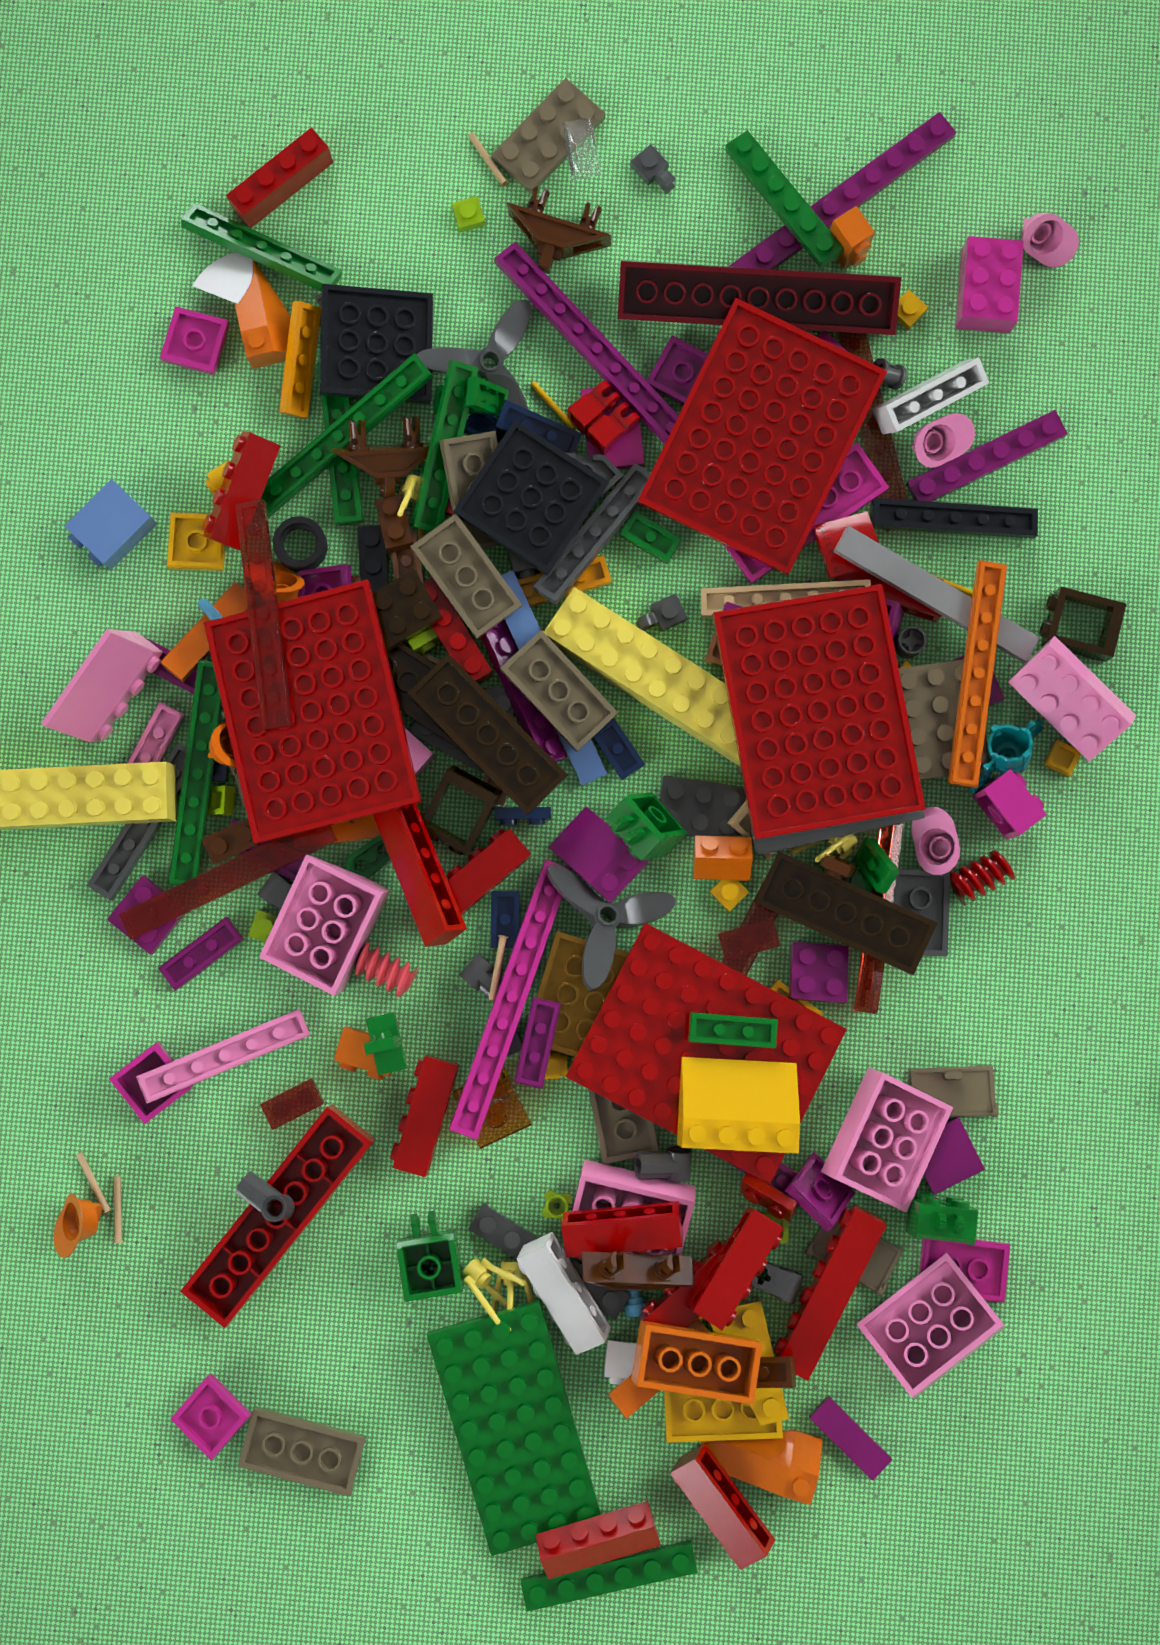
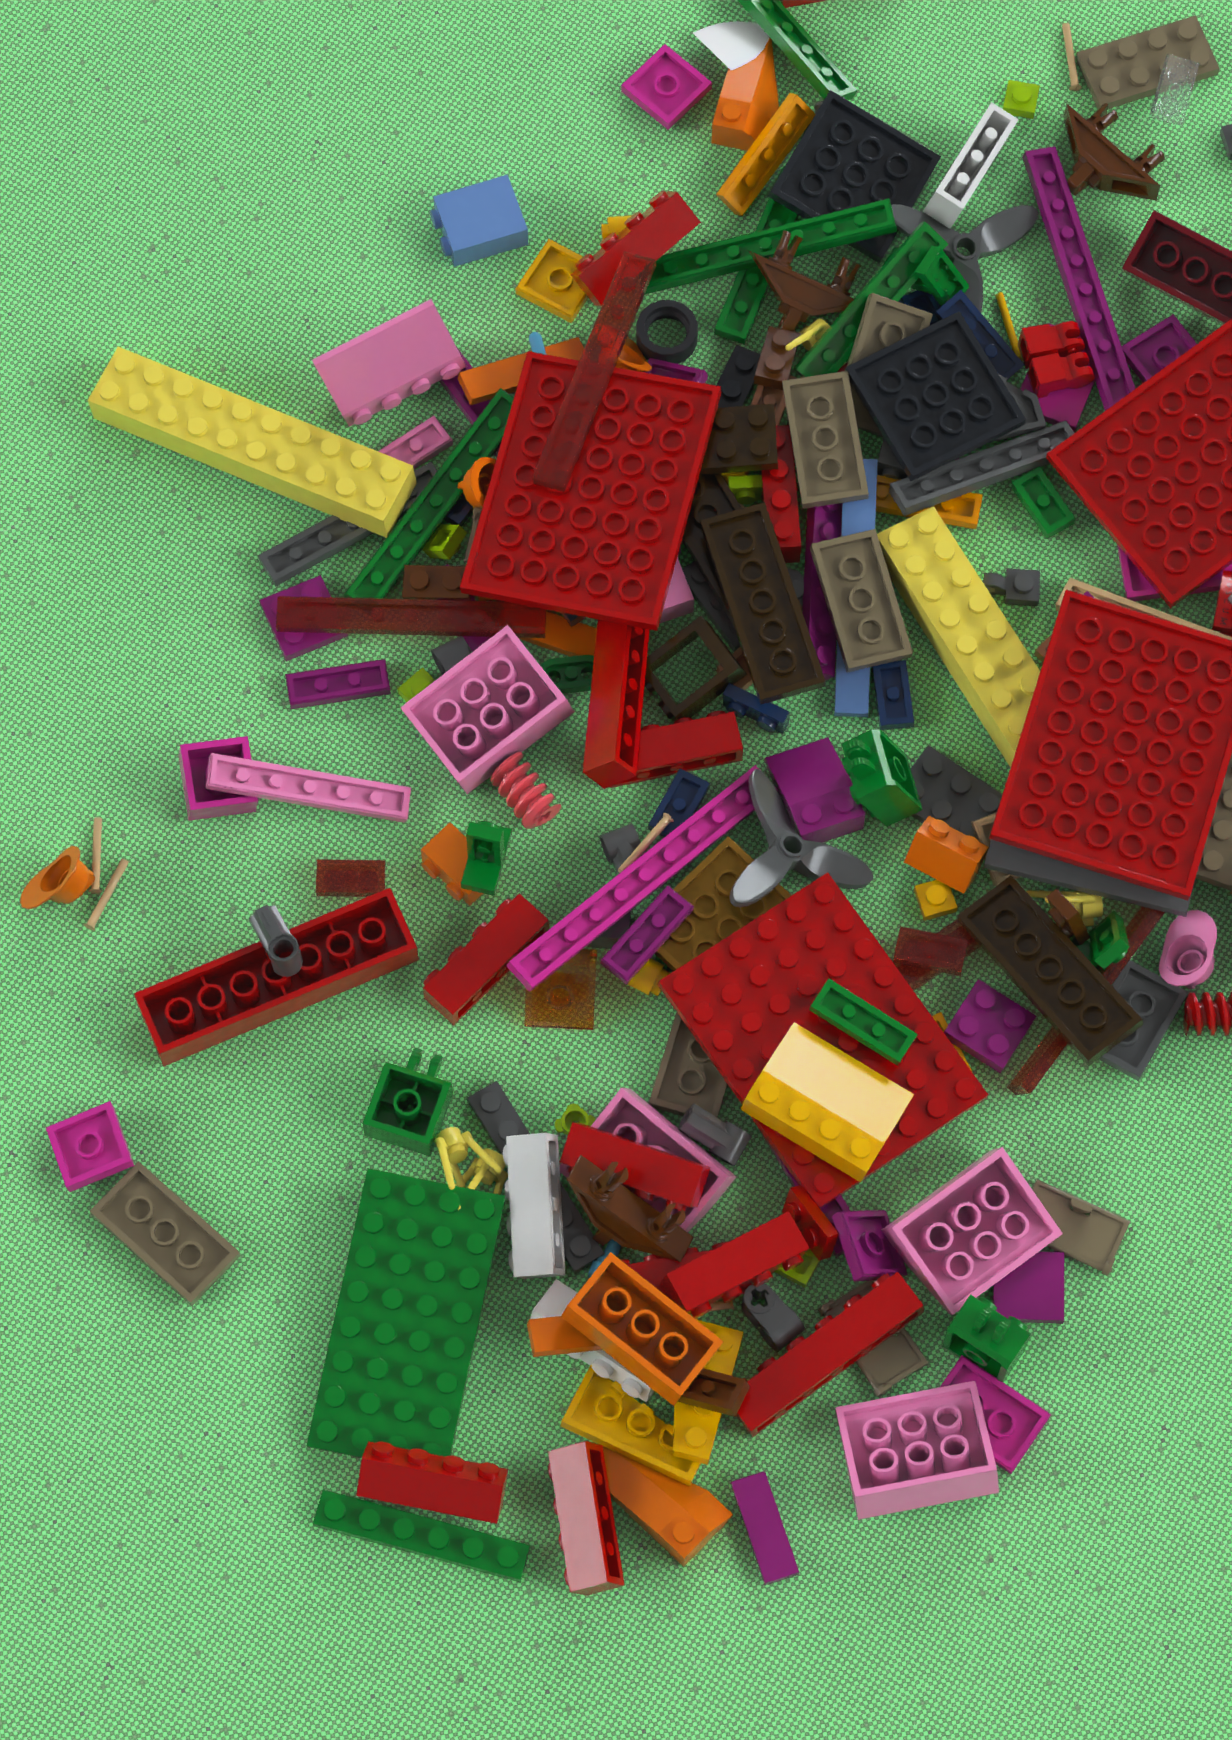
camera: 25 degrees right, 15 degrees down
(460, 291) = (970, 165): none -> white brick

